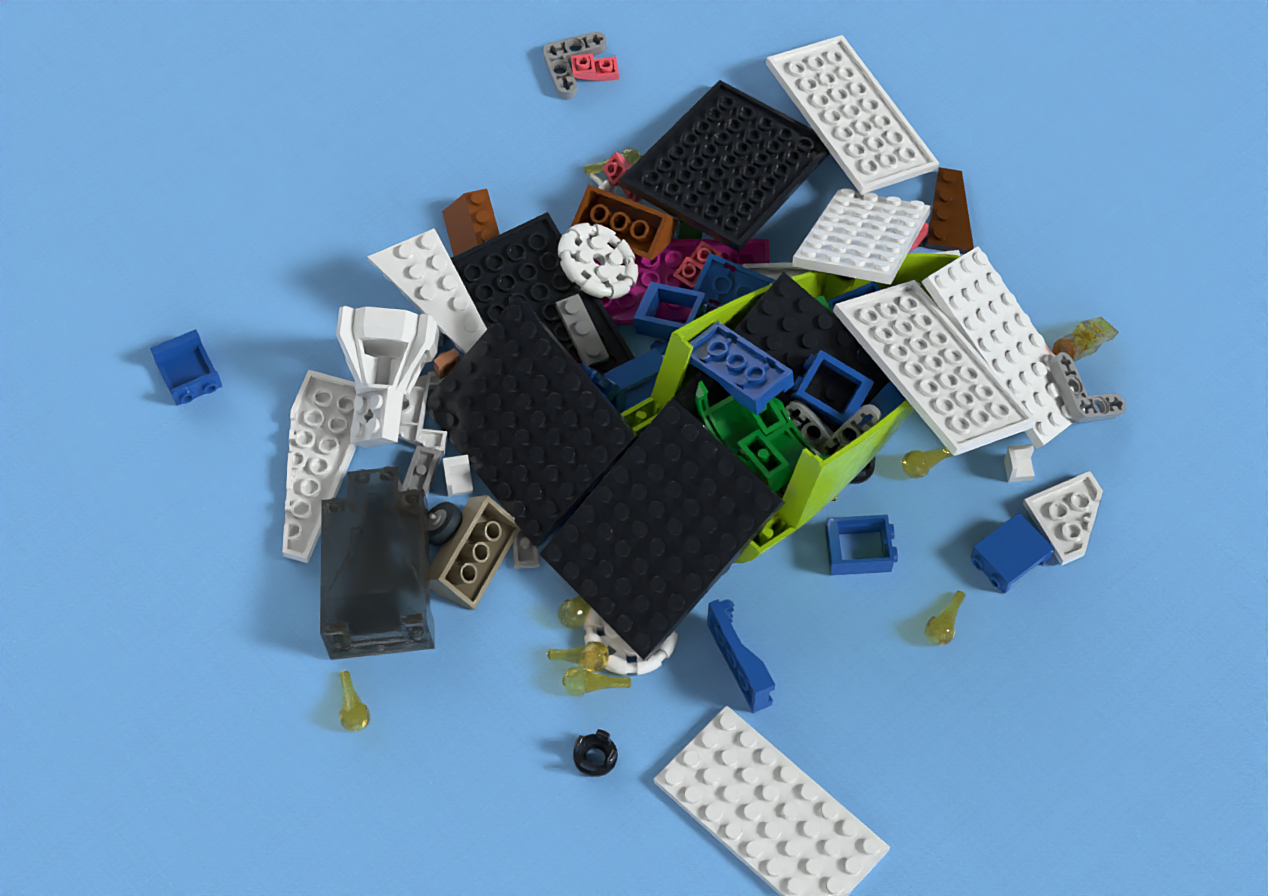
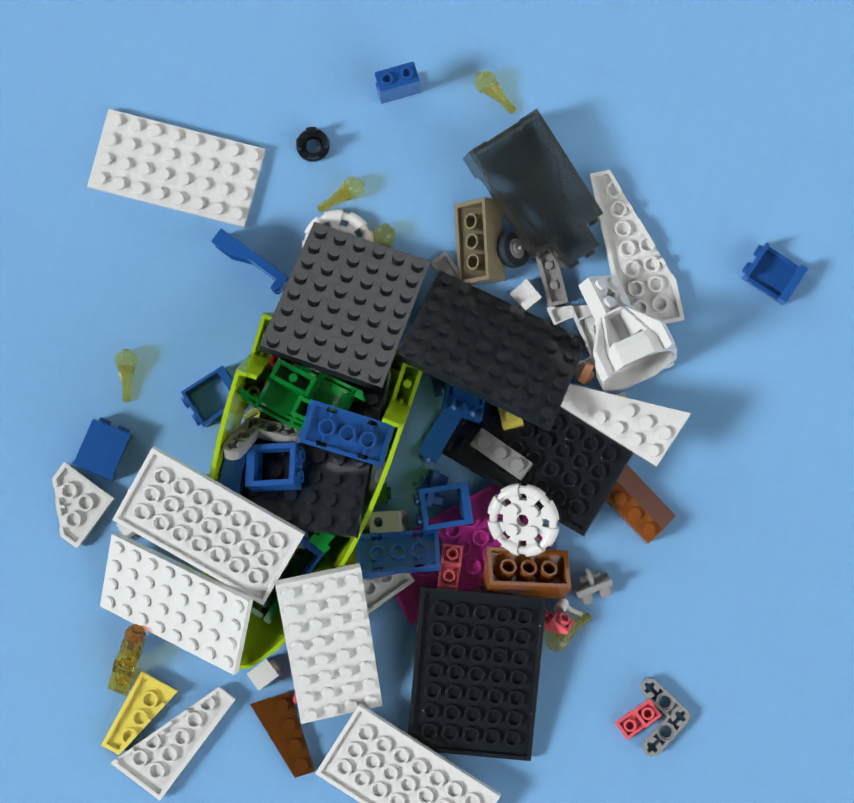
camera: 155 degrees right, 25 degrees up
(457, 758) = (397, 82): none -> blue panel
(564, 188) = (591, 583): none -> light grey hips
(592, 656) = (350, 205): clear yellow piece -> none
(1065, 372) = (105, 599): light grey beam -> none
(1082, 249) = (167, 751): none -> white wing
(1096, 296) = (140, 707): none -> light yellow wing

